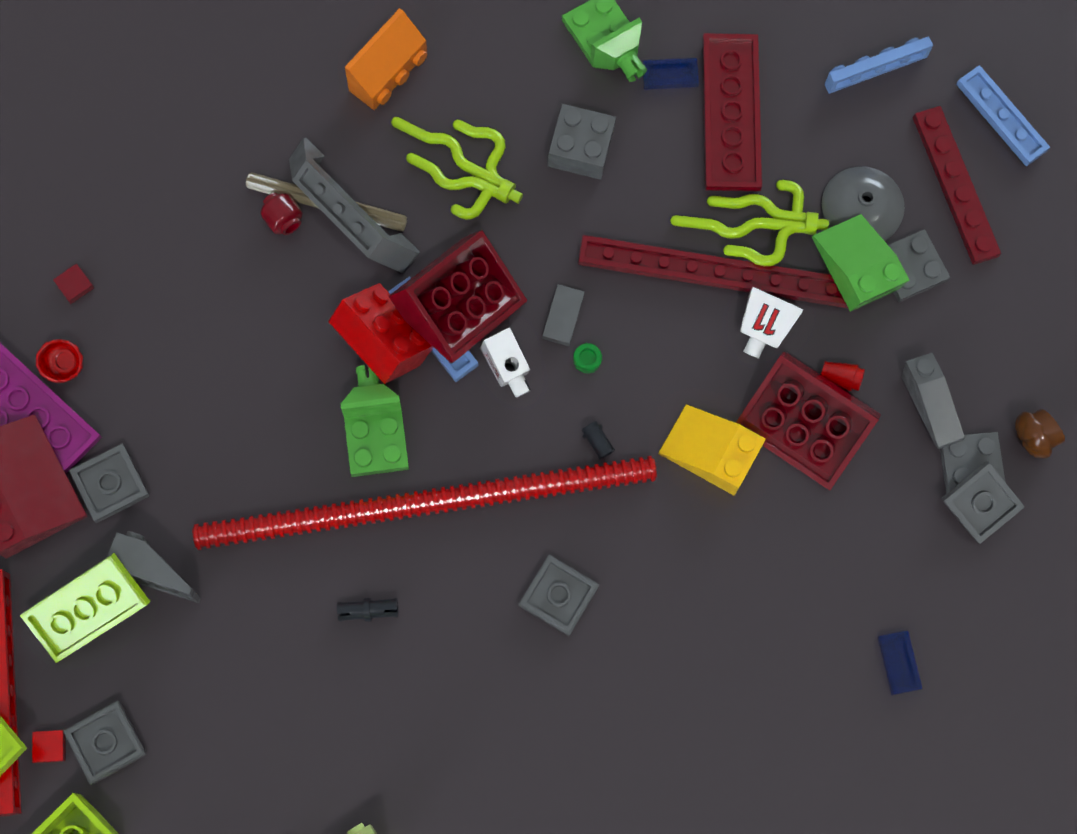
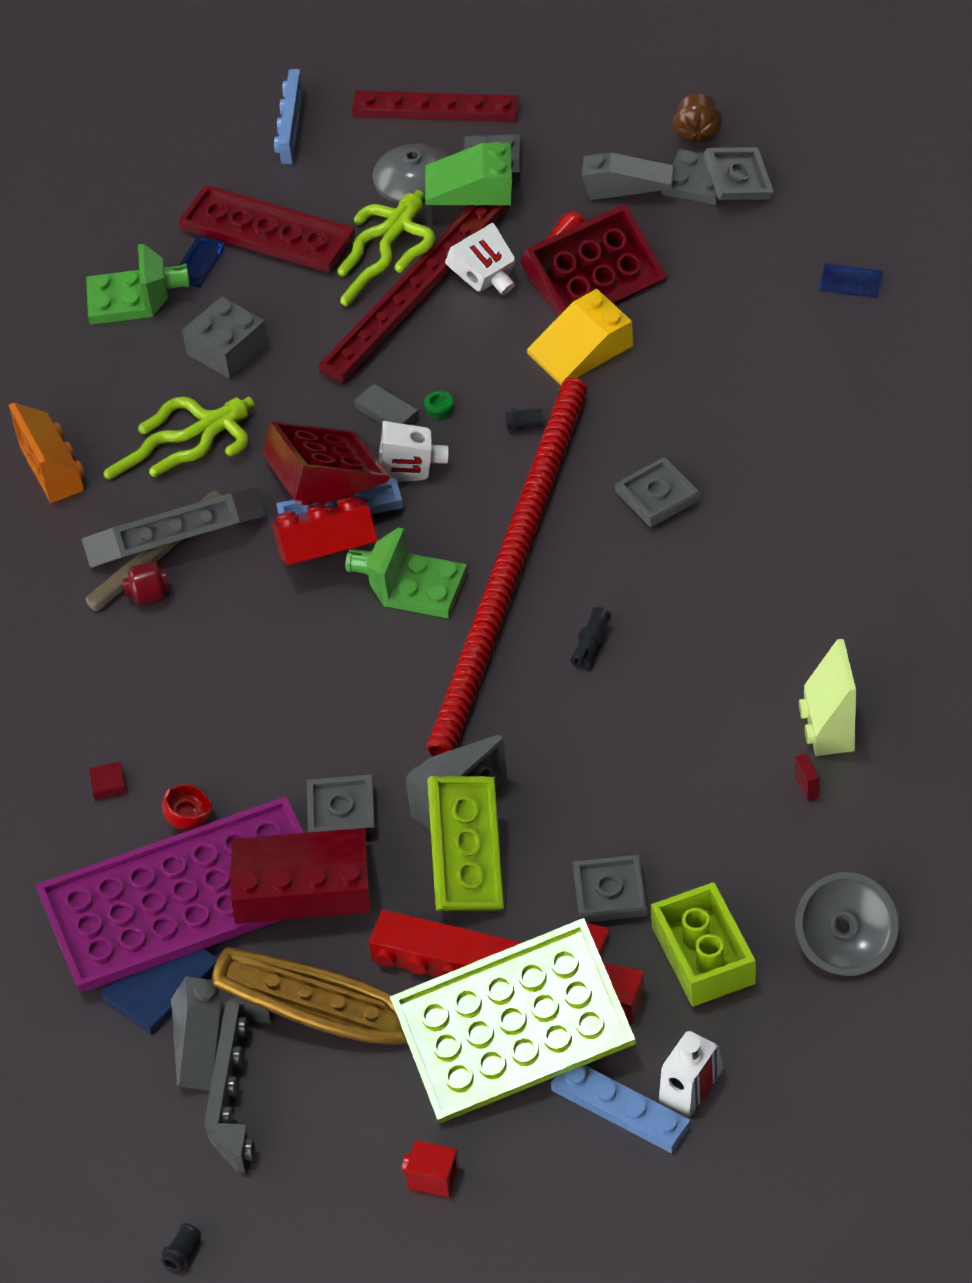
camera: 55 degrees left, 25 degrees down
(1003, 115) = (392, 54): medium blue plate -> none

